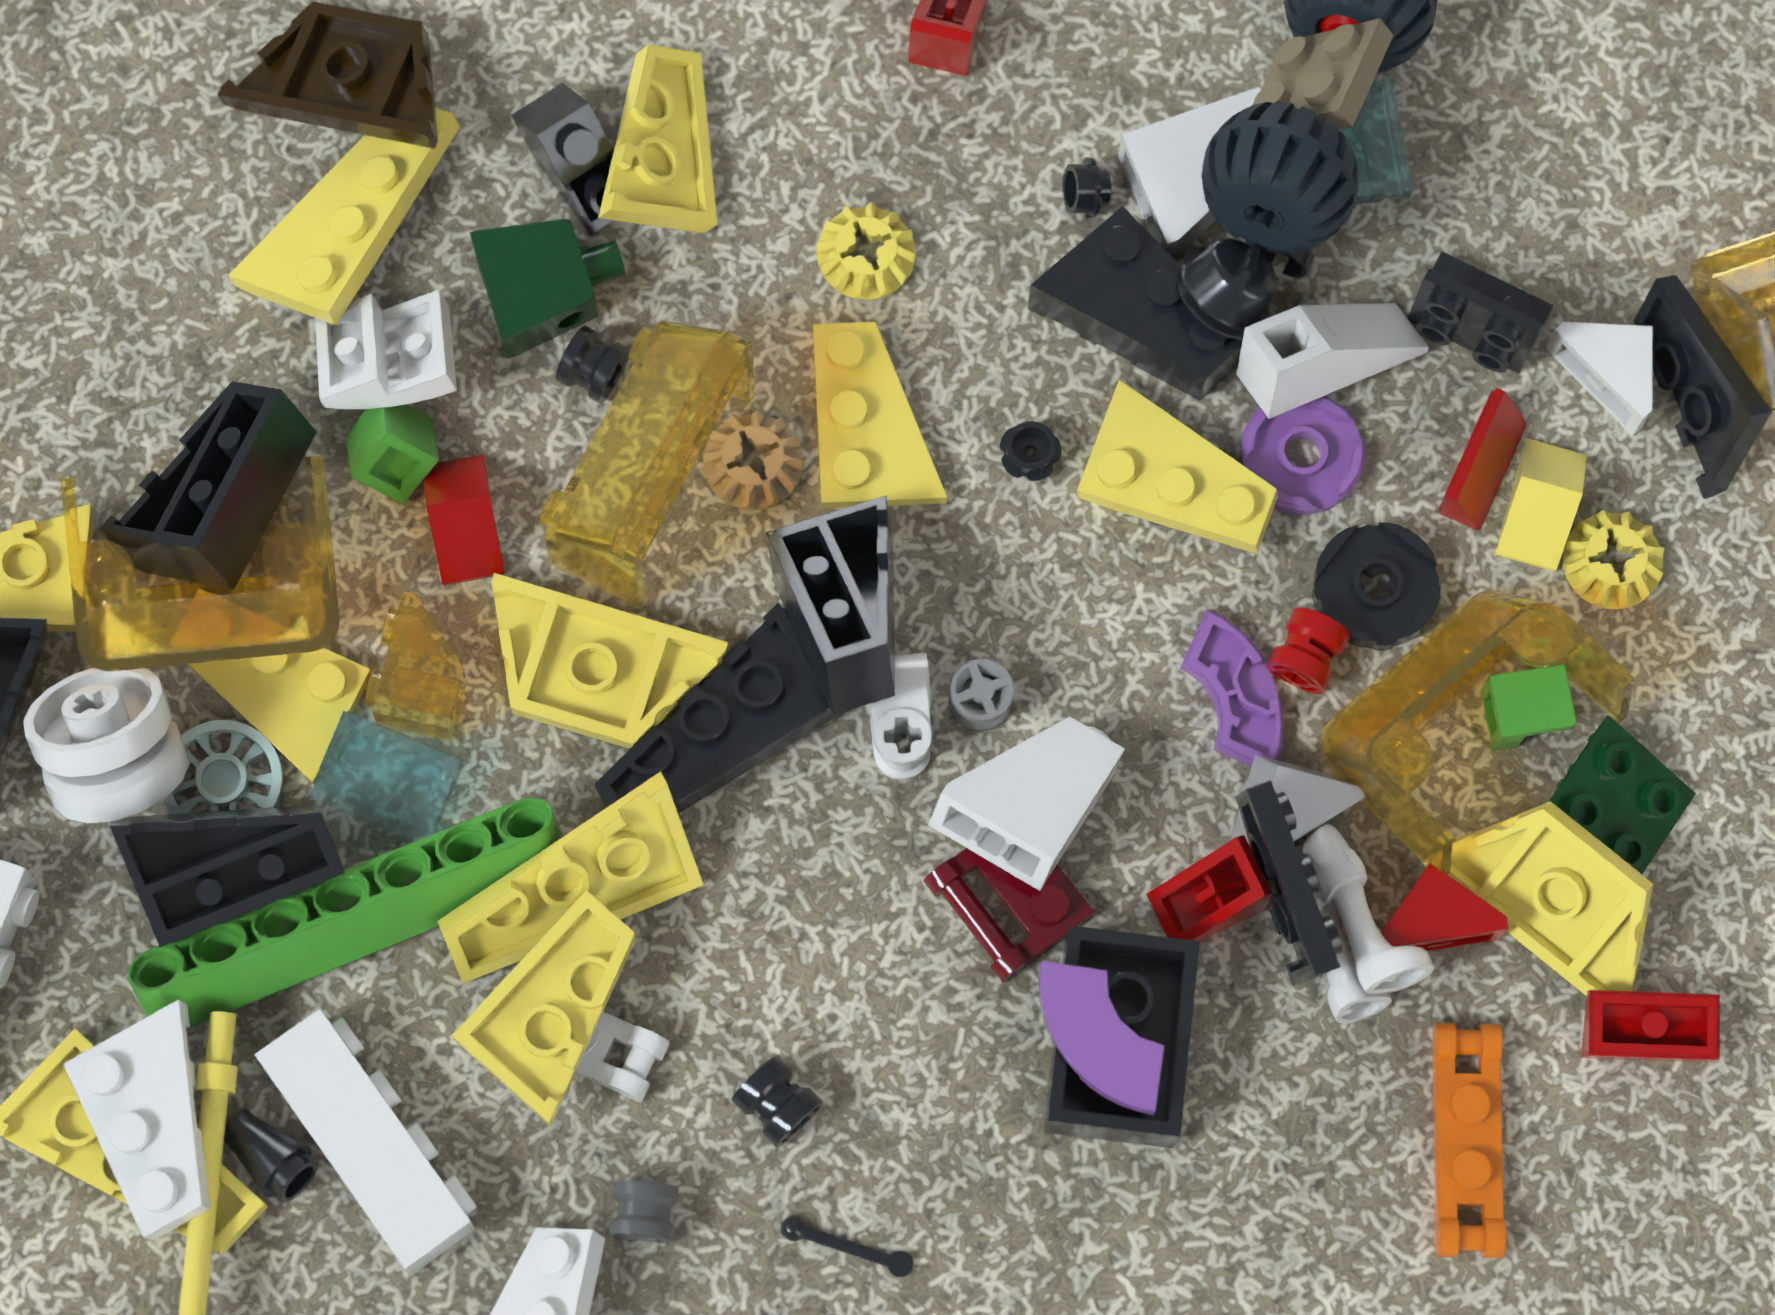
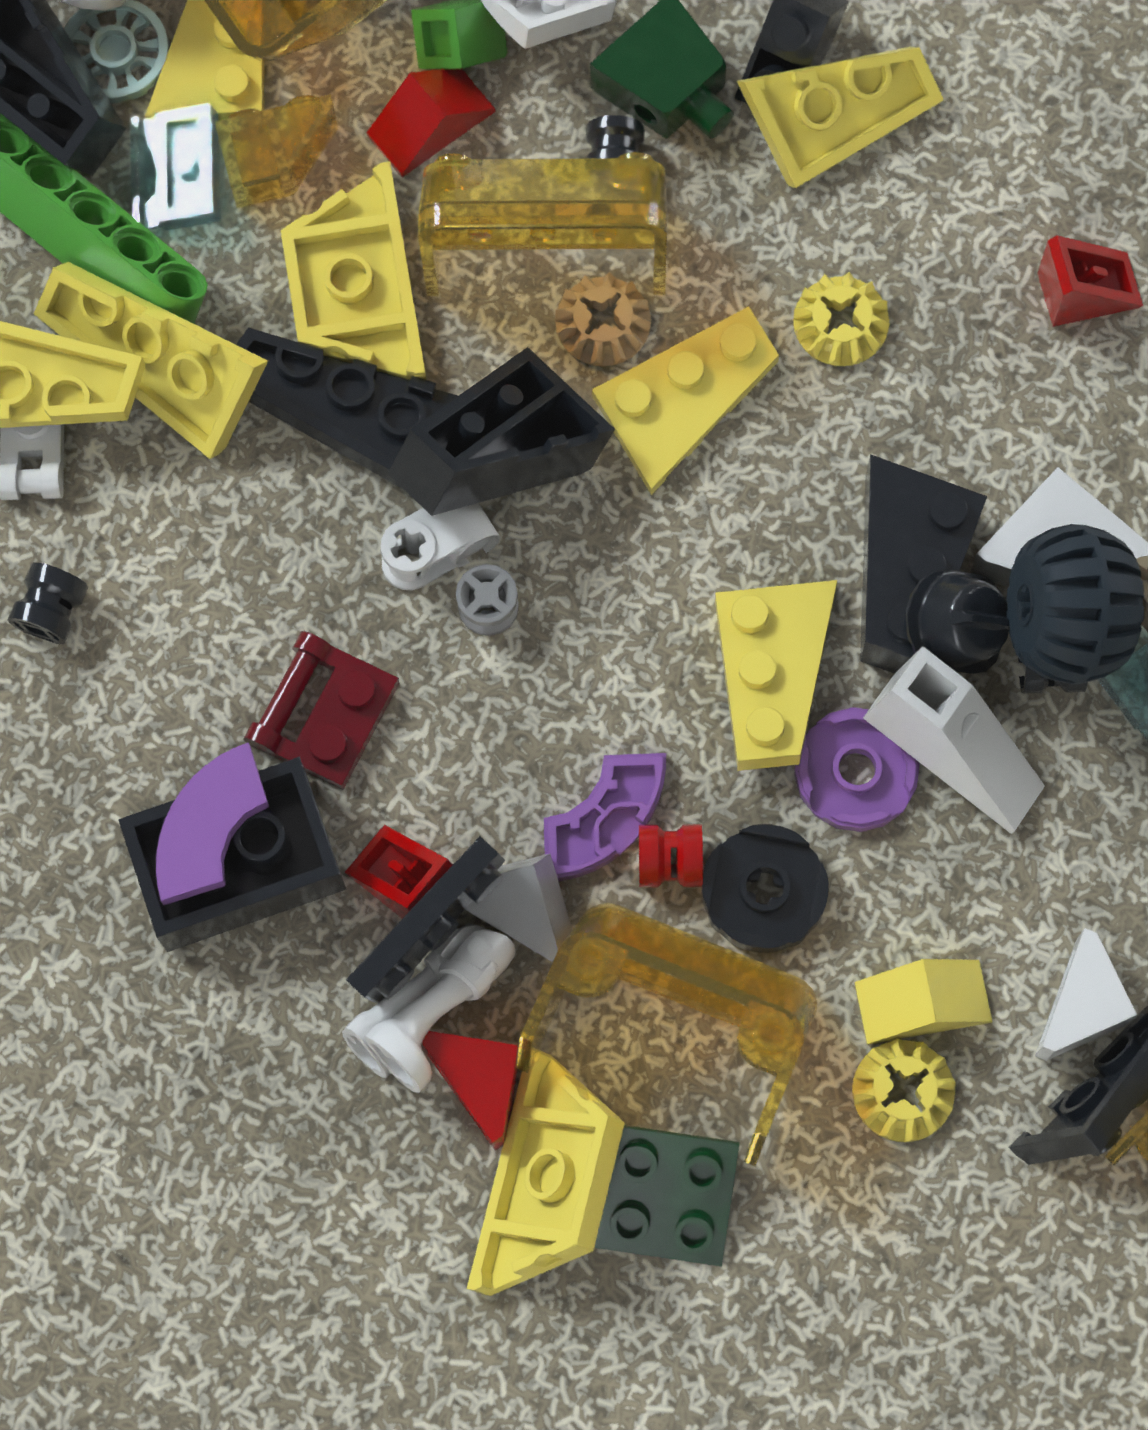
camera: 70 degrees right, 0 degrees up
(1029, 799) = (408, 680): white slope -> none
(1030, 435) = (738, 524): black plate -> none
(1086, 188) = (1000, 470): black plate -> none
(1468, 1140) = (294, 1203): orange plate -> none
(1478, 314) = (1074, 860): black bracket -> none
(1484, 461) = (933, 929): red slope -> none
(1527, 705) = (716, 1070): bright green panel -> none
(1651, 1026) = (472, 1318): red slope -> none

